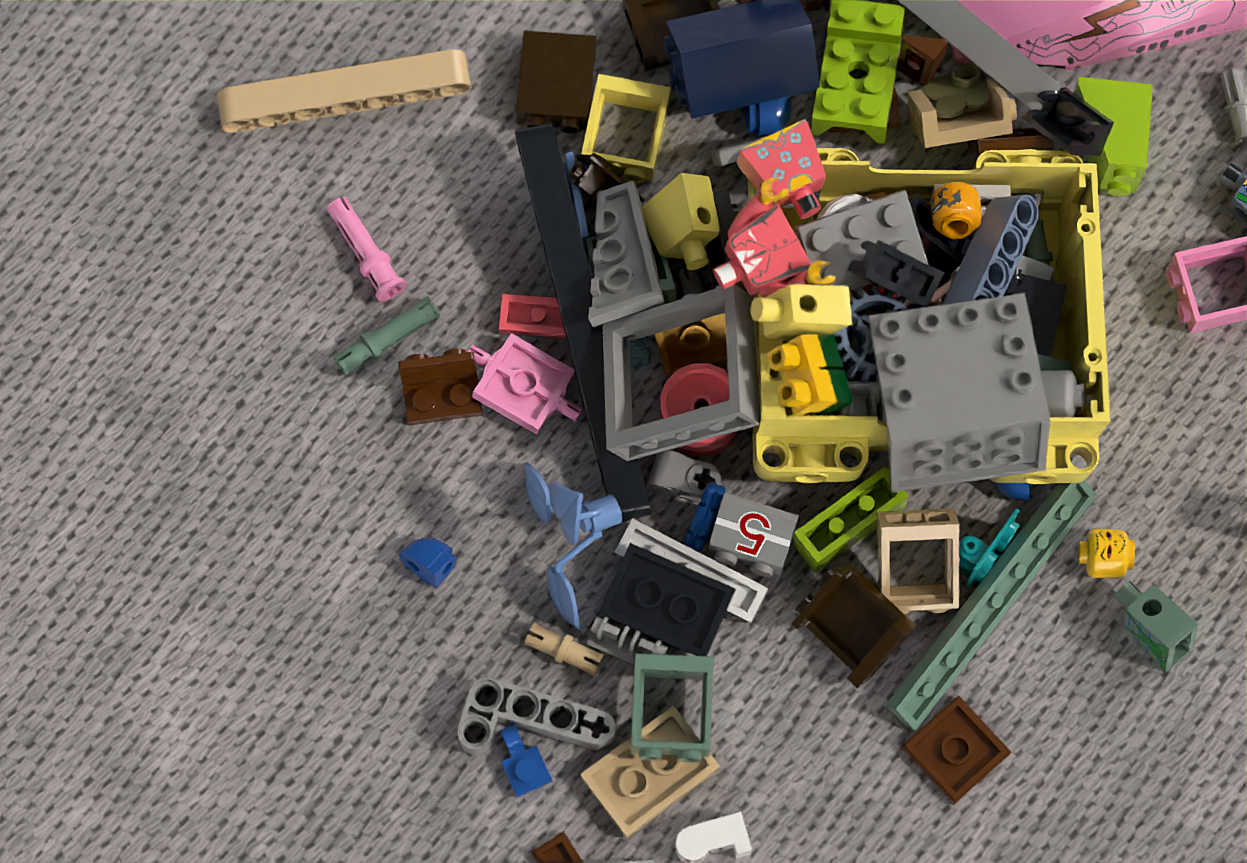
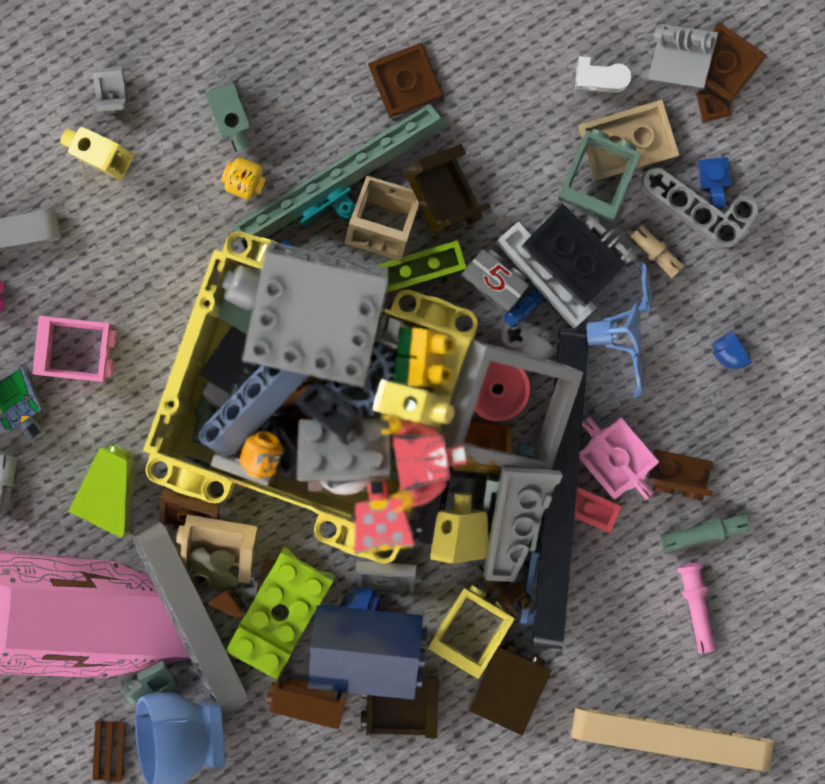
camera: 160 degrees left, 15 degrees up
(1071, 122) = (142, 503): black hinge -> none

